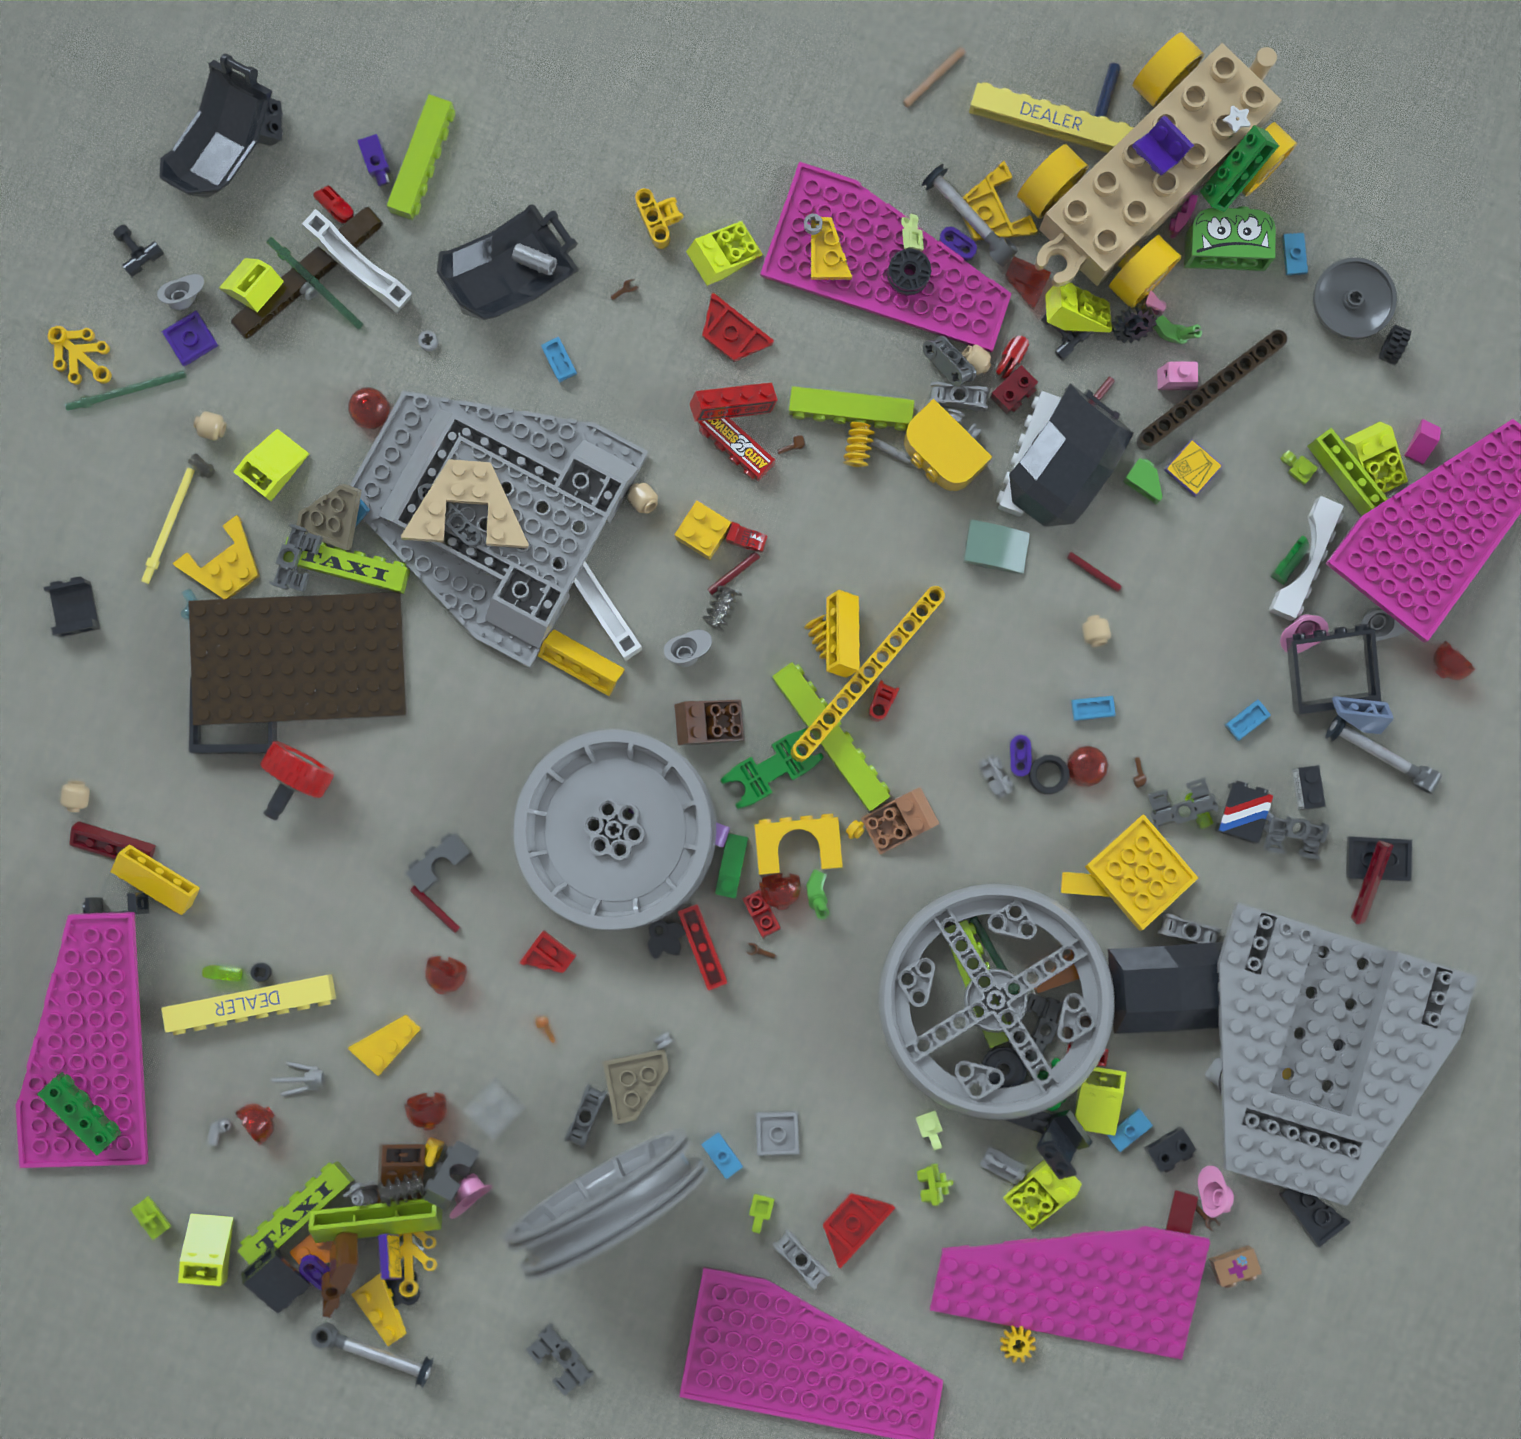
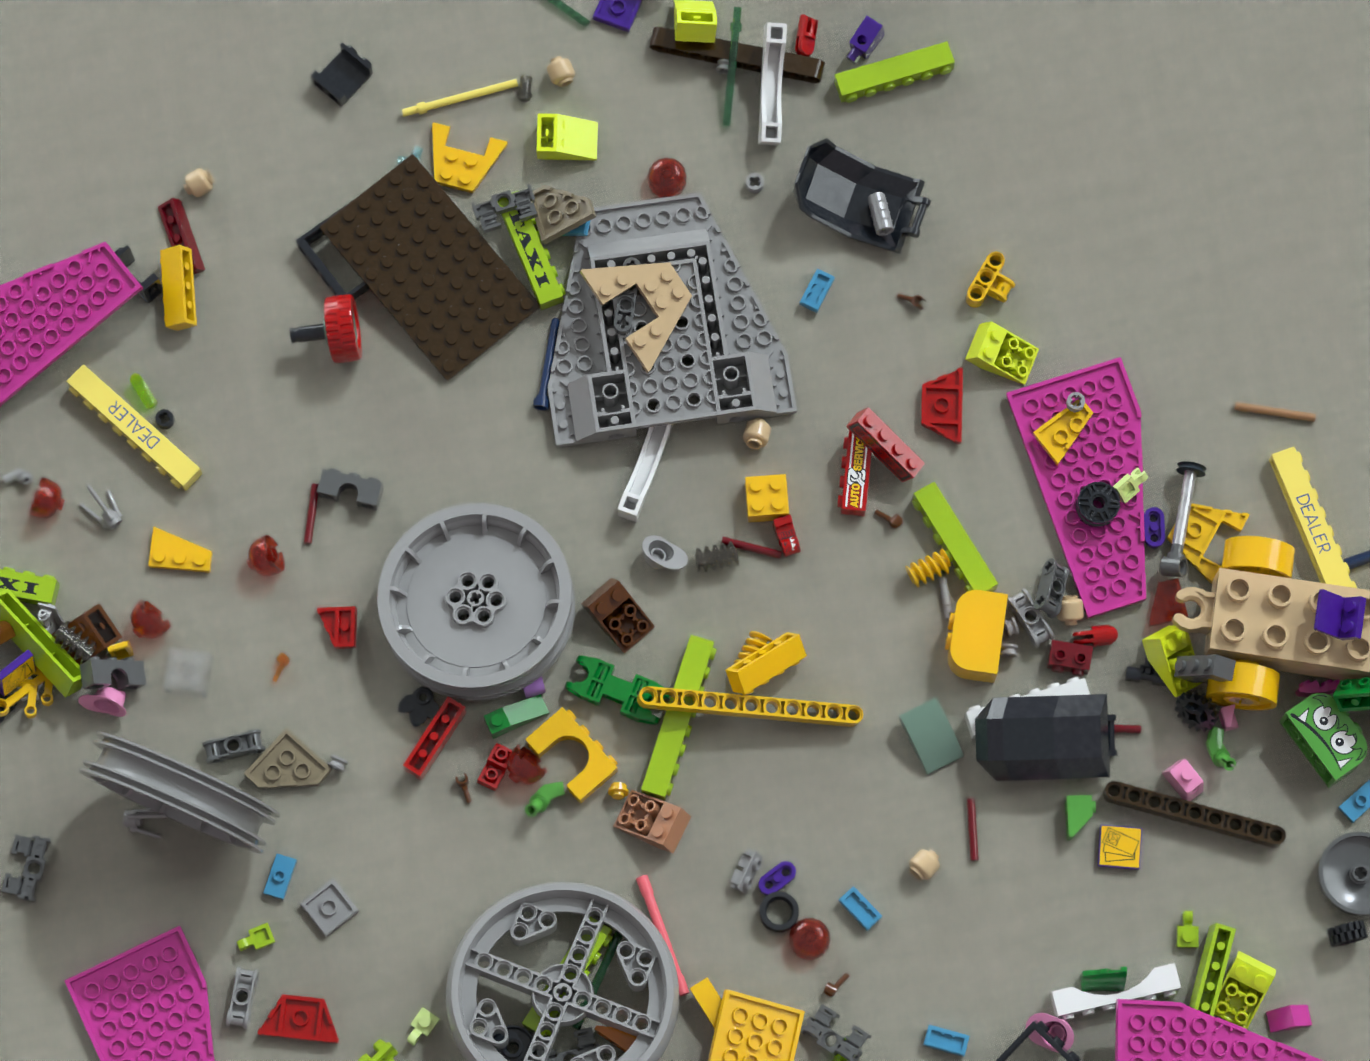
camera: 50 degrees right, 10 degrees down
(482, 651) = (541, 401): none -> dark blue piece
(580, 662) = (590, 481): yellow panel -> none
(884, 698) = (739, 736): red piece -> none
(957, 868) = (648, 895): none -> coral piece
(1114, 289) = (1200, 667): none -> dark grey arch

